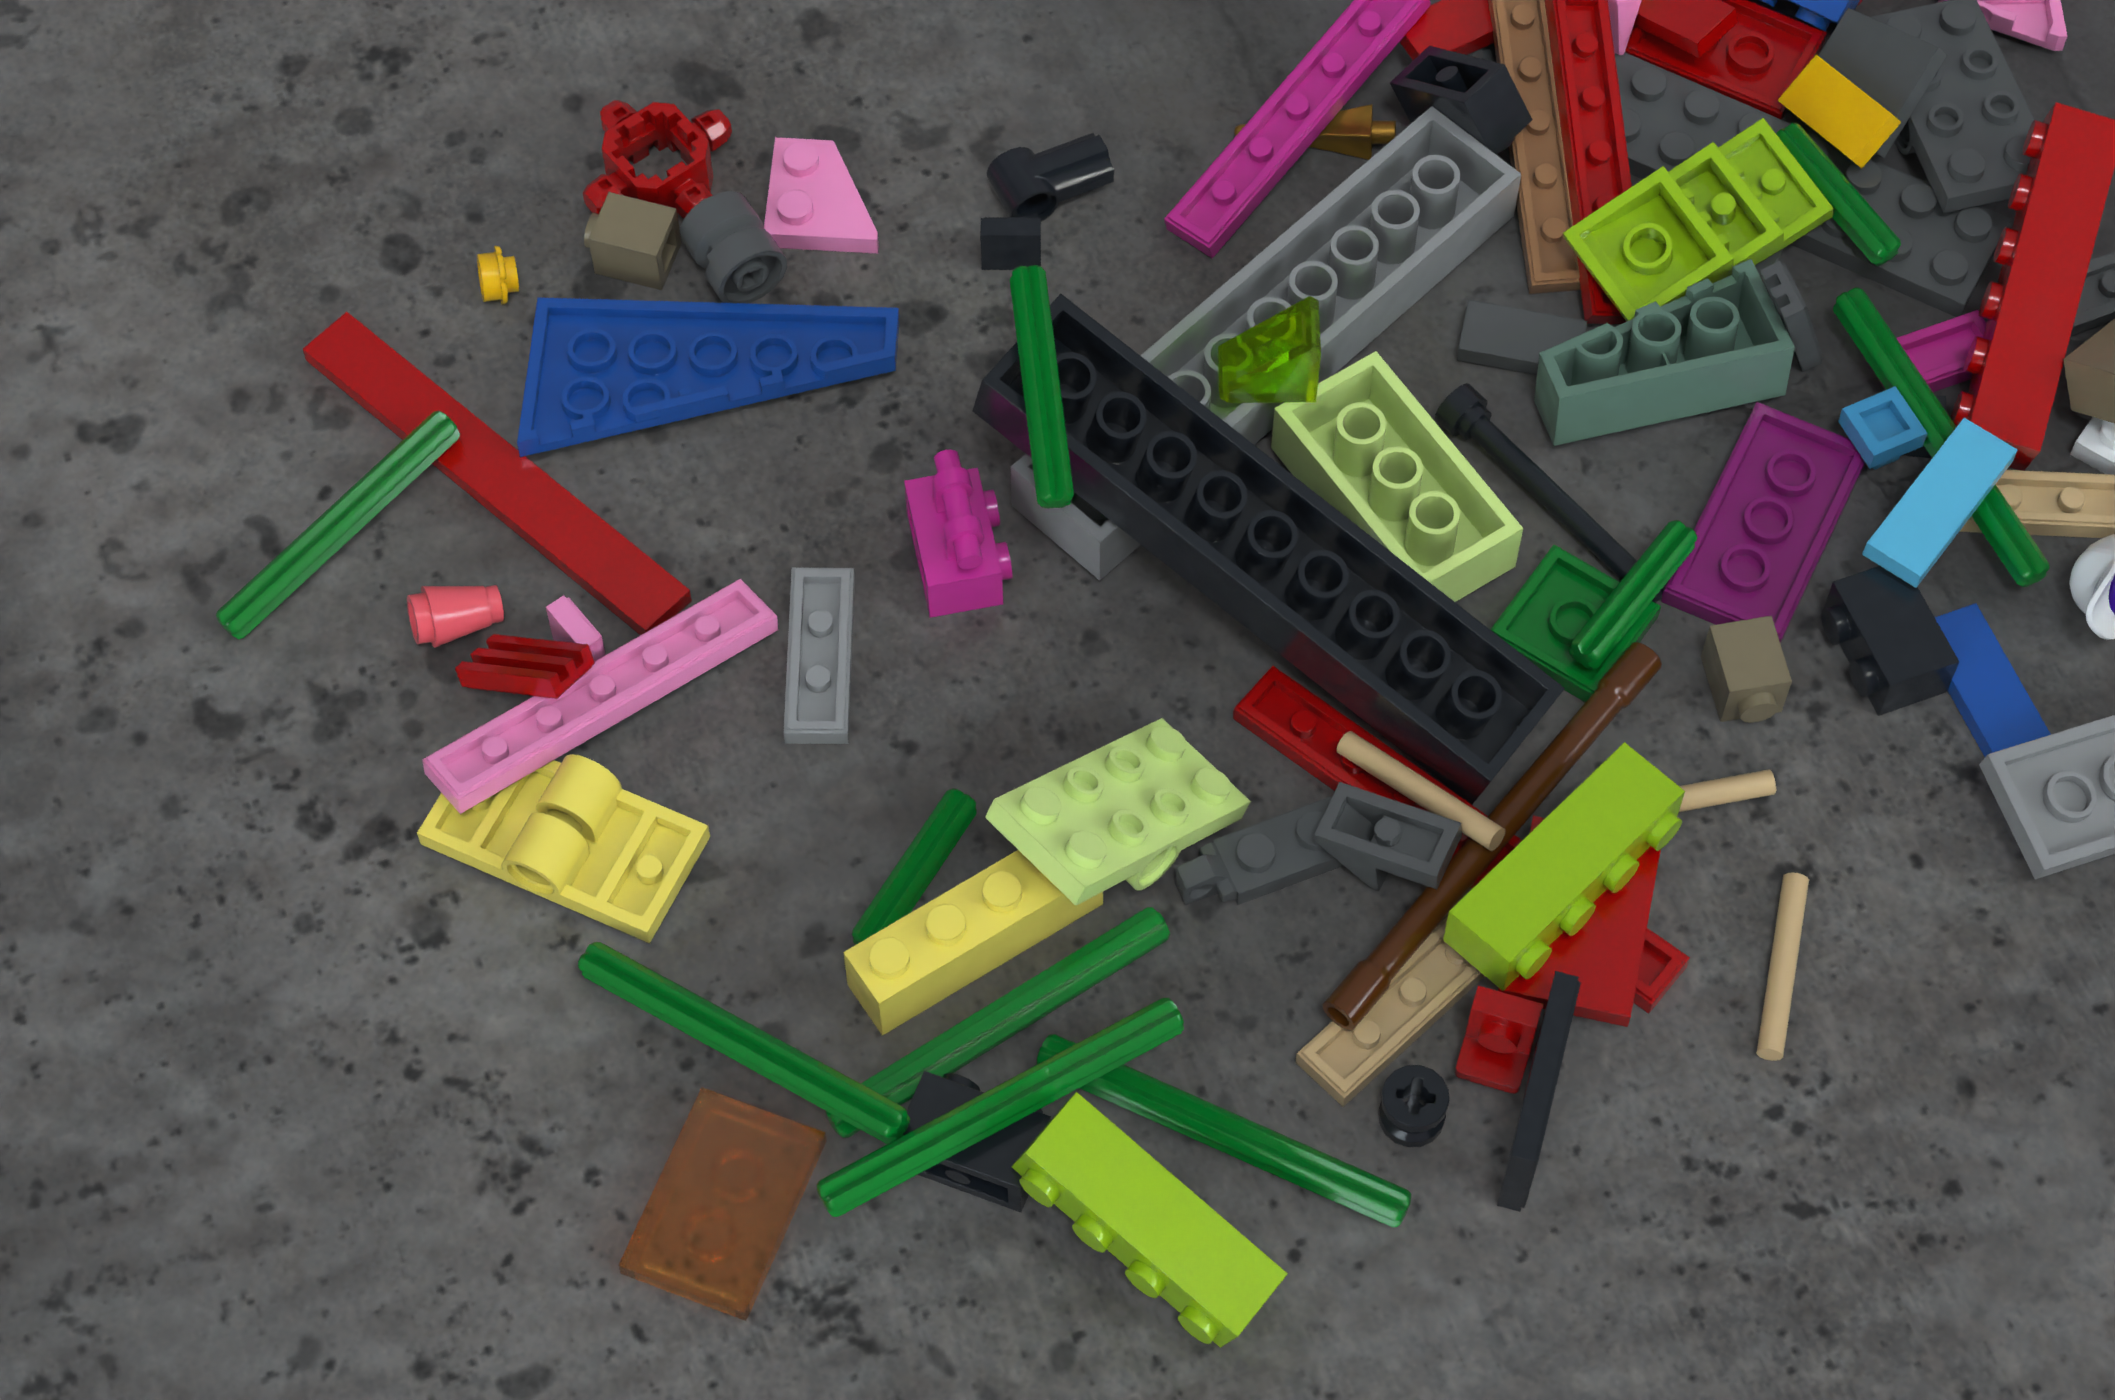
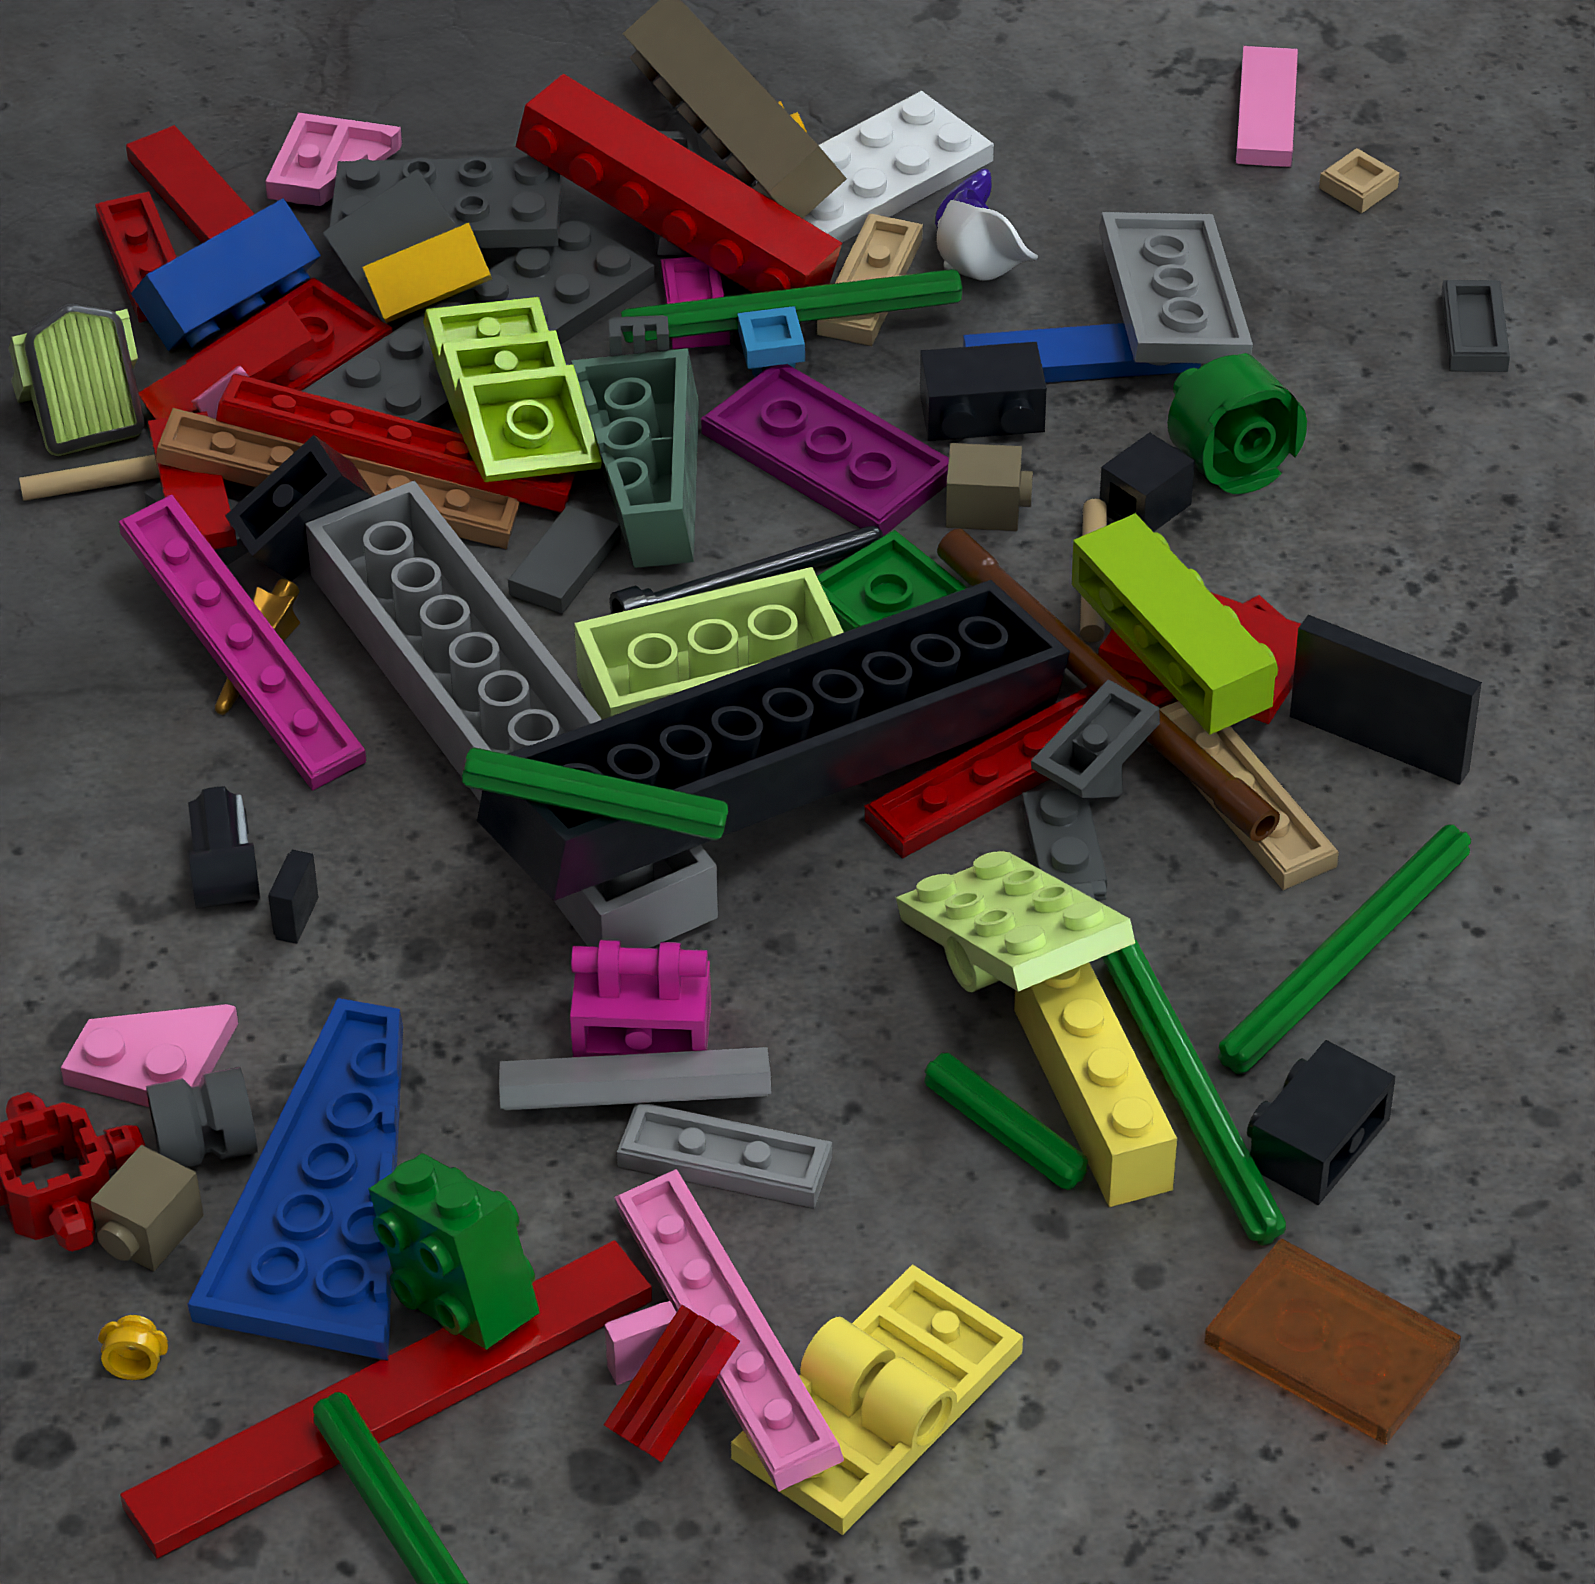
camera: 75 degrees left, 15 degrees down
(452, 612) = (566, 1456): coral cone -> none
(602, 458) = (454, 1250): none -> green brick
(744, 1043) = (1172, 1274): green axle -> none
(878, 560) = (634, 1078): none -> light grey tile
(999, 1107) = (1317, 1067): green axle -> none
(1148, 1222) = (1449, 989): lime brick -> none
(1274, 358) = (572, 669): clear neon green slope -> none
(1410, 1121) = (1360, 805): black wheel -> none
(1420, 790) = (1047, 716): tan bar -> none
(1498, 1040) = (1307, 726): red bracket -> none
(1633, 594) = (886, 534): green axle -> none
(1782, 967) = (1279, 543): tan bar -> none
(1808, 818) = (1148, 481): none -> black brick
(1849, 206) = (554, 291): green axle -> none
(1914, 875) = (1235, 422): none -> green brick
(1939, 502) = (878, 307): medium azure tile -> none

